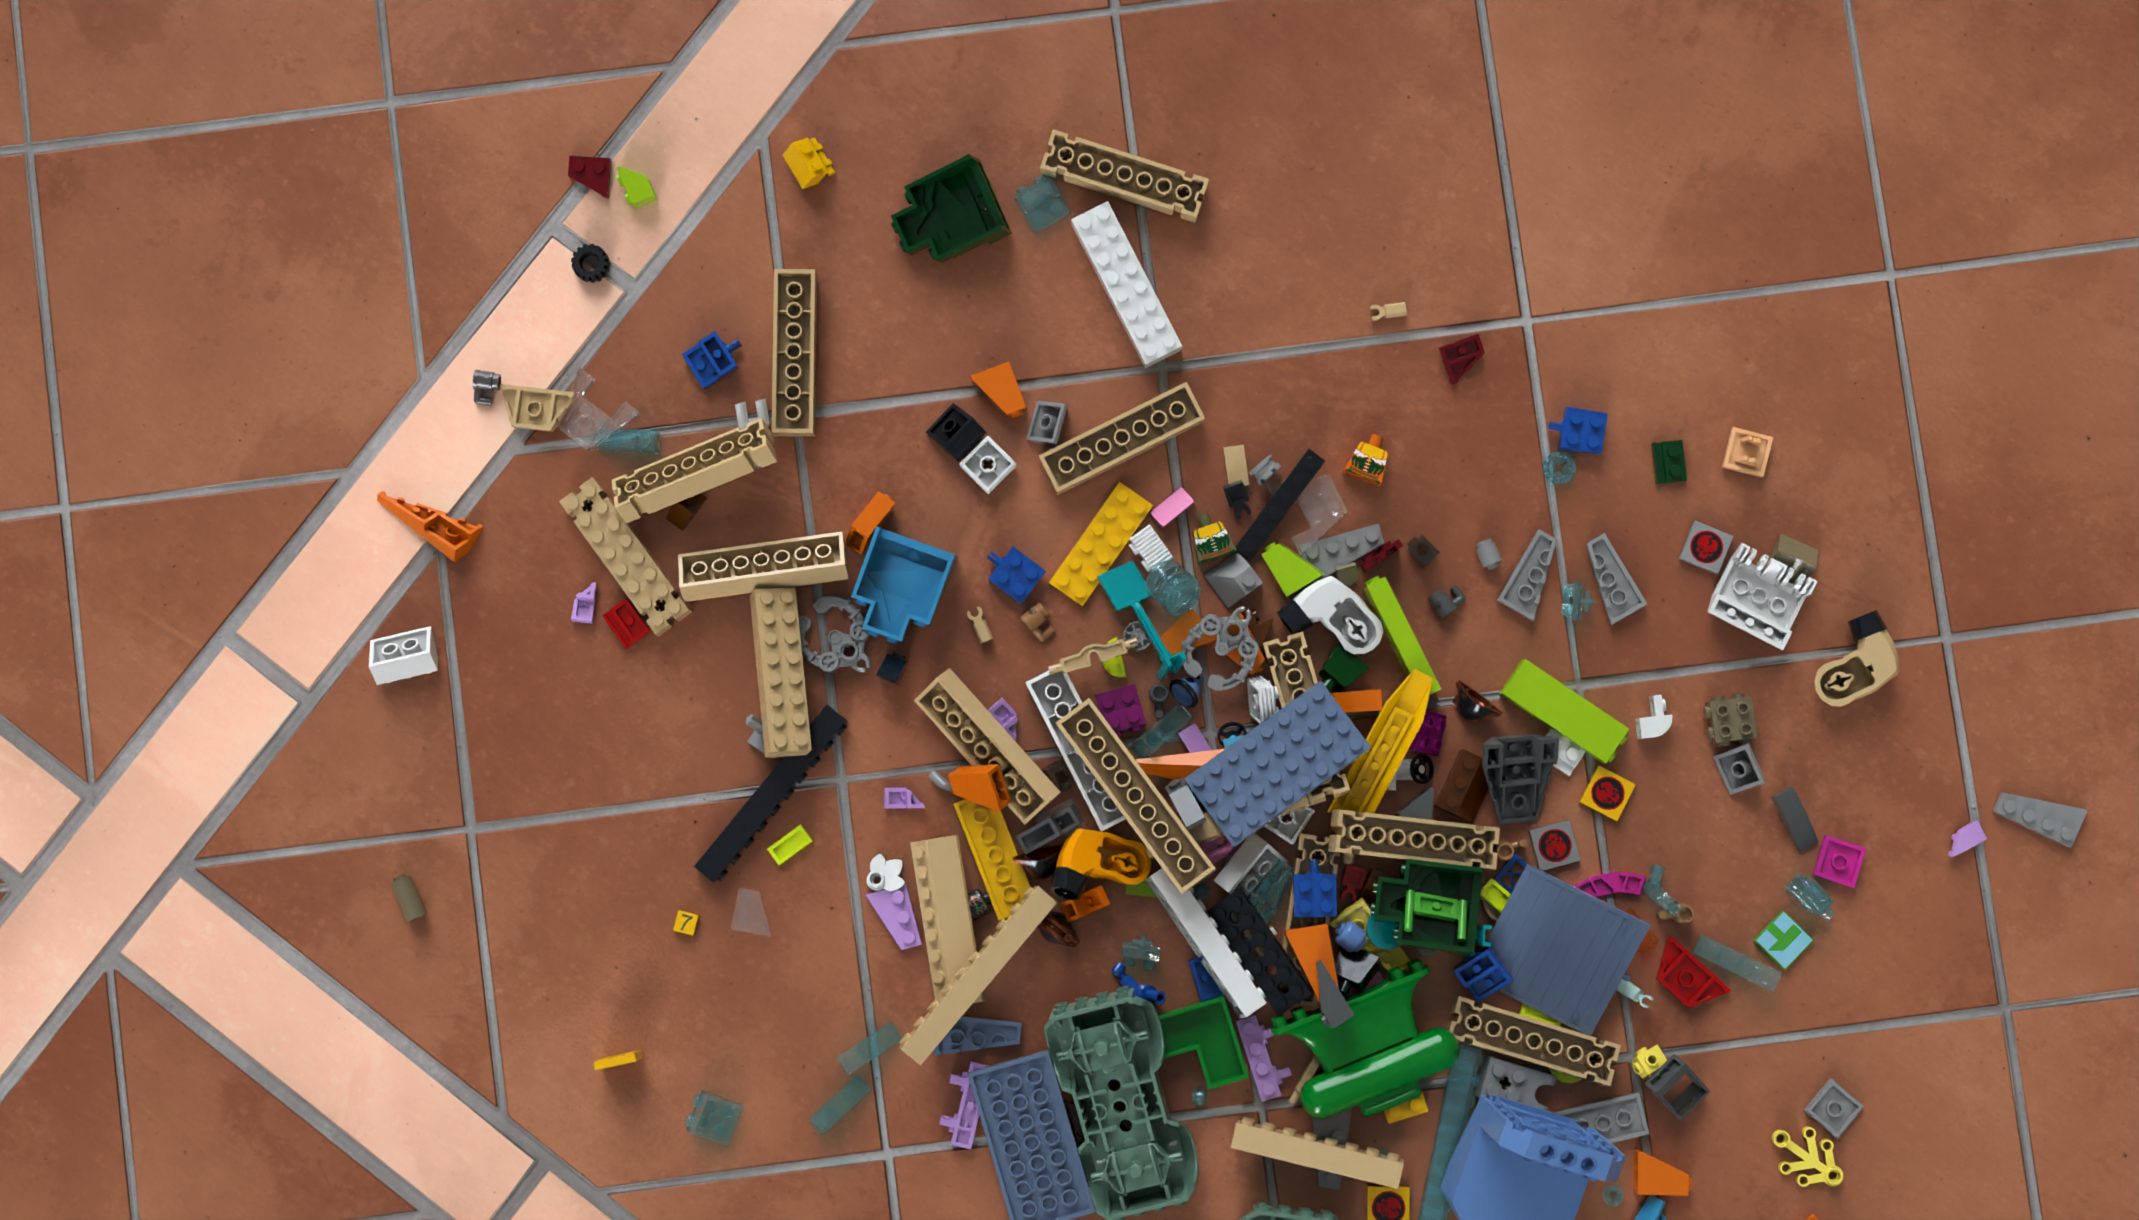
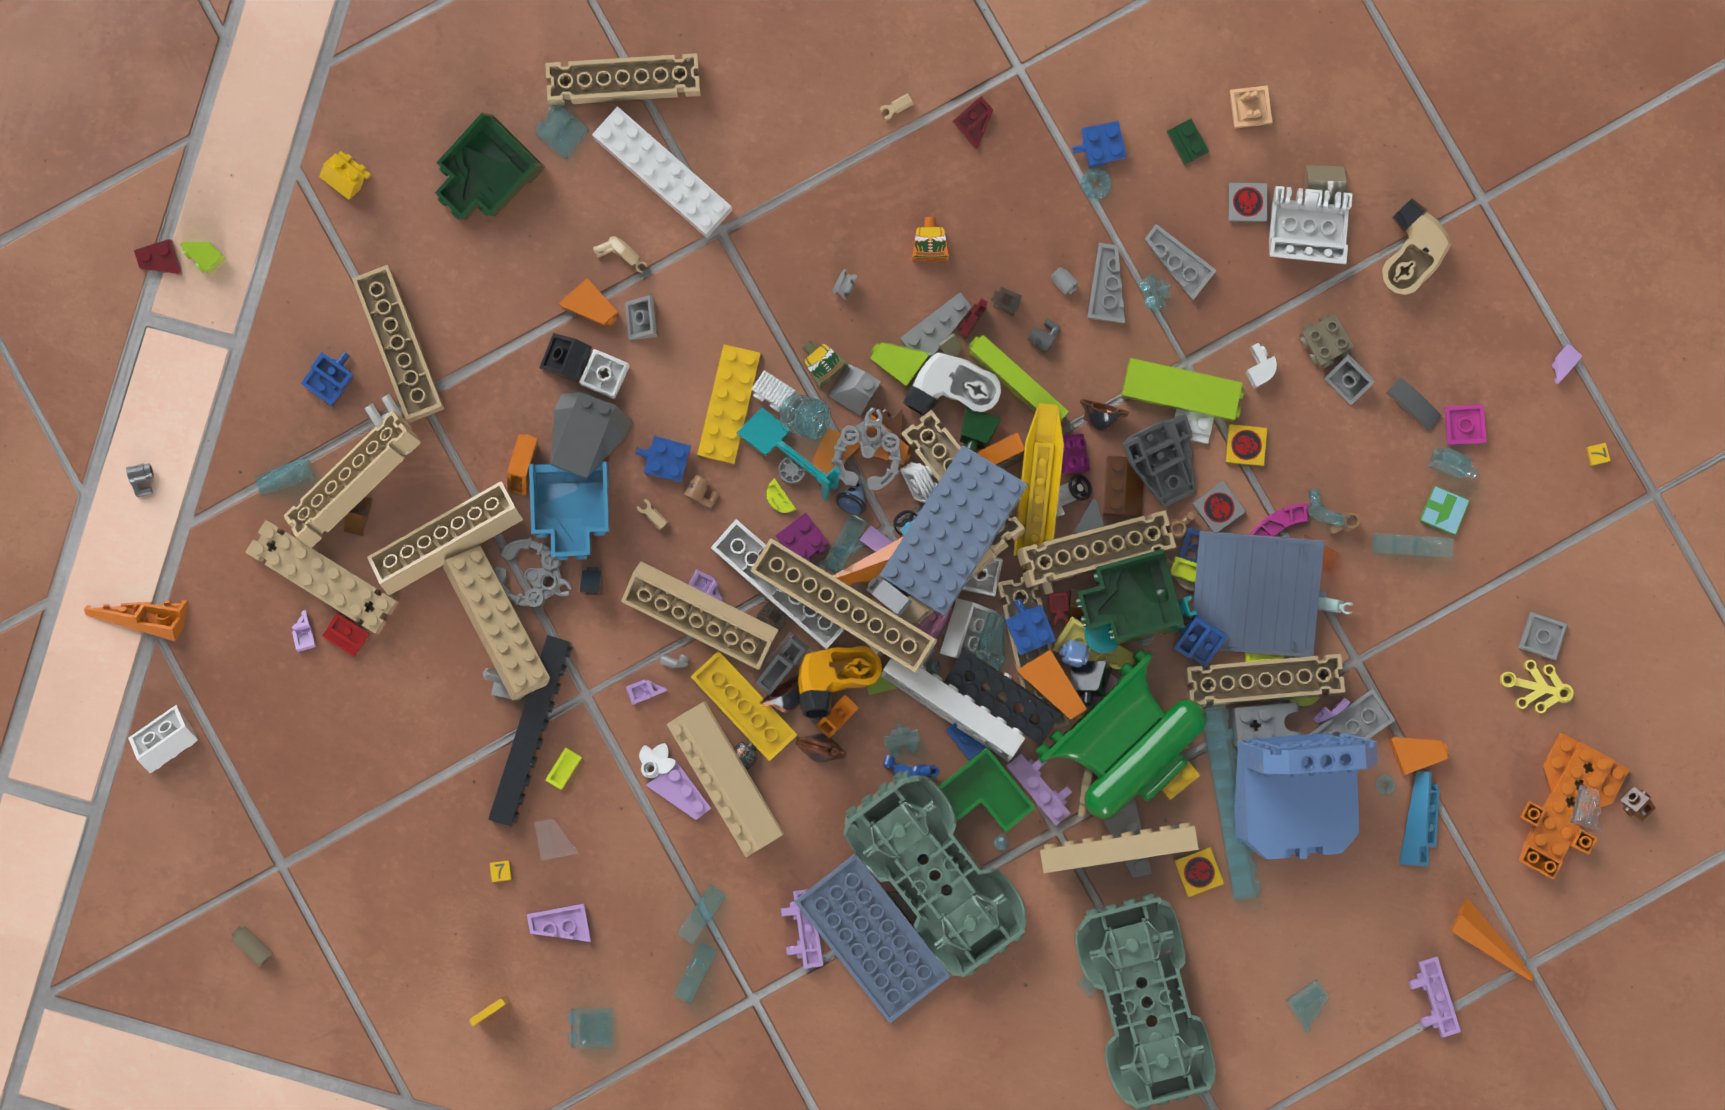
camera: 25 degrees left, 0 degrees up
(536, 407) = (192, 479): tan wing -> none
(581, 254) = (179, 330): black tyre -> none
(587, 422) = (240, 474): clear wing -> none
(726, 999) = (561, 922): none -> lavender wing
(945, 516) = (585, 432): none -> dark grey wedge
(977, 975) = (769, 813): tan brick -> none
(979, 1033) = (785, 866): sand blue wing -> none
(981, 785) = (707, 650): orange slope -> none
(1055, 345) = (621, 248): none -> tan arm
(1082, 659) = (752, 509): tan piece -> none
(1121, 438) = (710, 306): tan brick -> none
(1158, 694) = (830, 513): dark grey piece -> none
(1172, 507) = (777, 348): bright pink slope -> none
(1236, 464) = (818, 291): tan tile -> none
(1236, 496) = (829, 316): black plate -> none
(1280, 504) = (869, 309): black plate -> none
(1320, 506) = (902, 295): clear wing -> none
(1332, 1003) = (1080, 714): dark grey slope -> none
(1435, 907) = (1137, 599): bright green plate -> none
(1580, 1099) = (1325, 713): none -> lavender slope
(1648, 1061) = (1371, 659): light yellow brick -> none
(1667, 1076) = (1389, 666): dark grey window -> none
(1687, 976) = (1375, 574): red wing -> none
(1963, 945) = (1598, 454): none -> yellow tile
(2049, 819) = (1625, 318): light grey wing -> none

